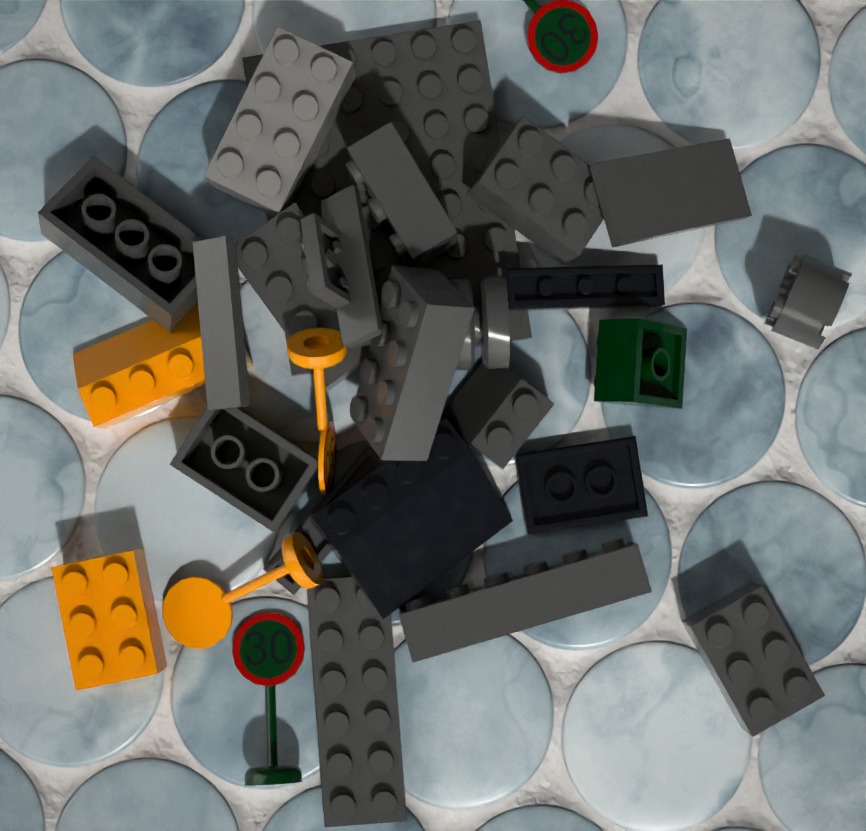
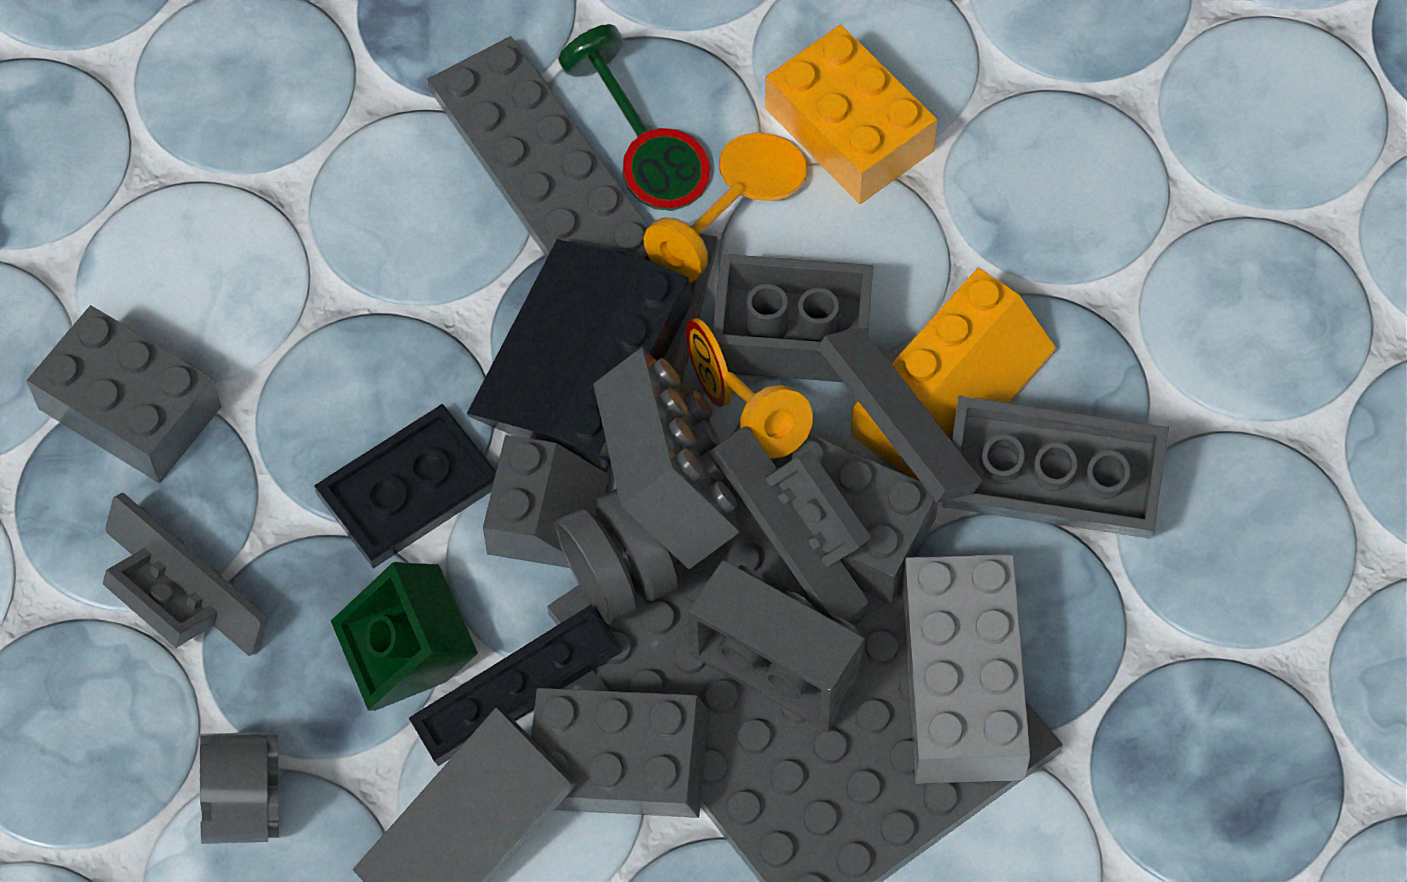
camera: 155 degrees right, 25 degrees down
(524, 600) = (409, 336): dark grey brick -> none
(785, 483) = (173, 585): none -> dark grey bracket

